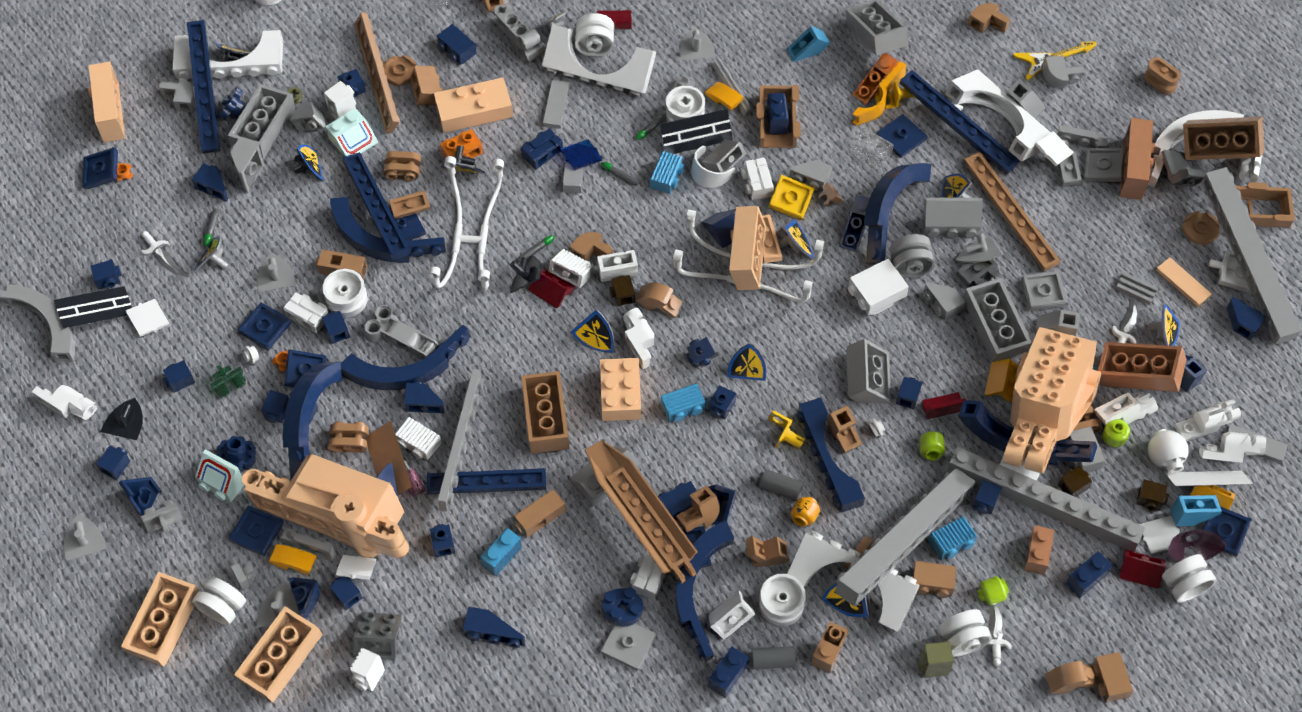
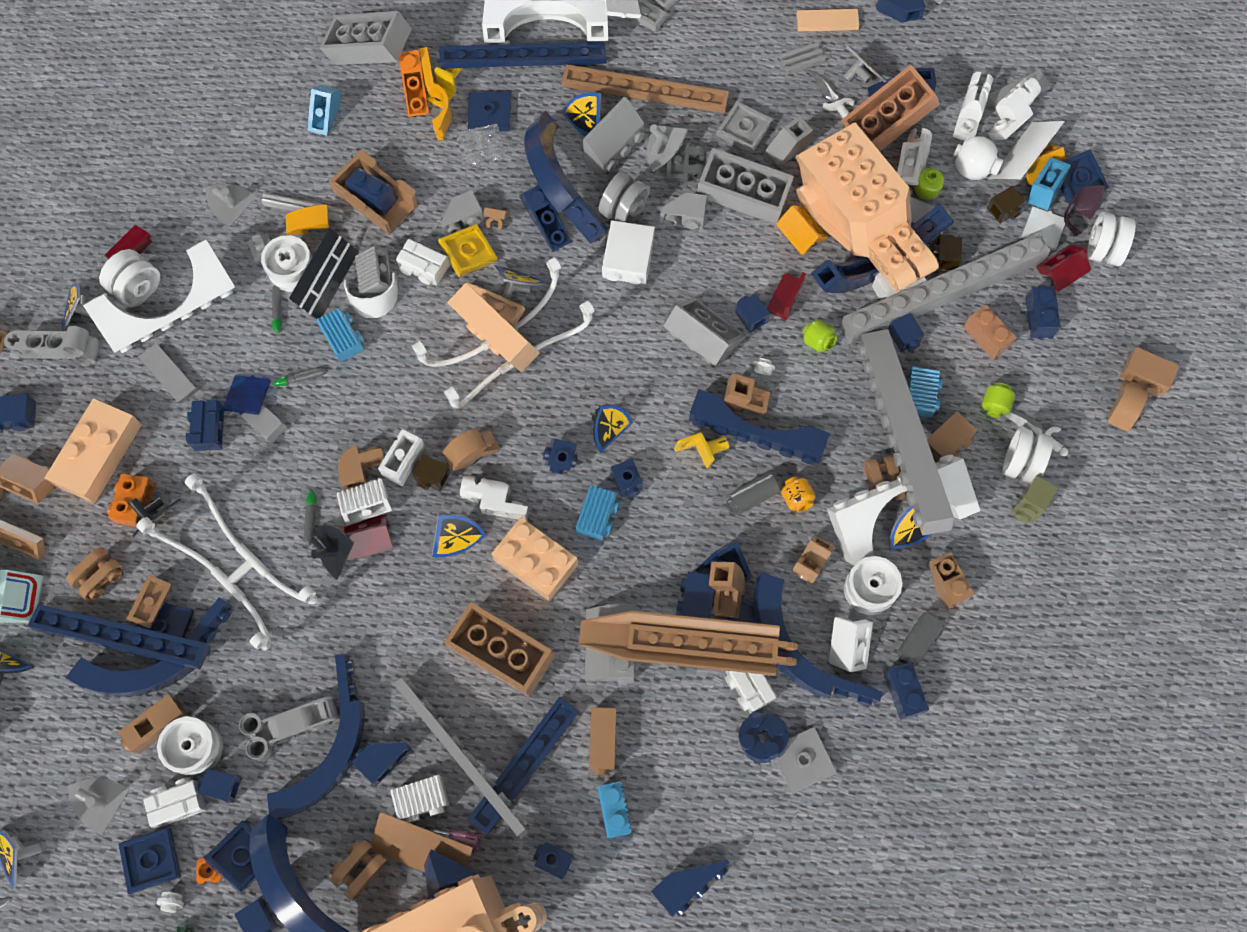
camera: 50 degrees left, 10 degrees up
(720, 226) = (444, 329): dark blue slope -> none

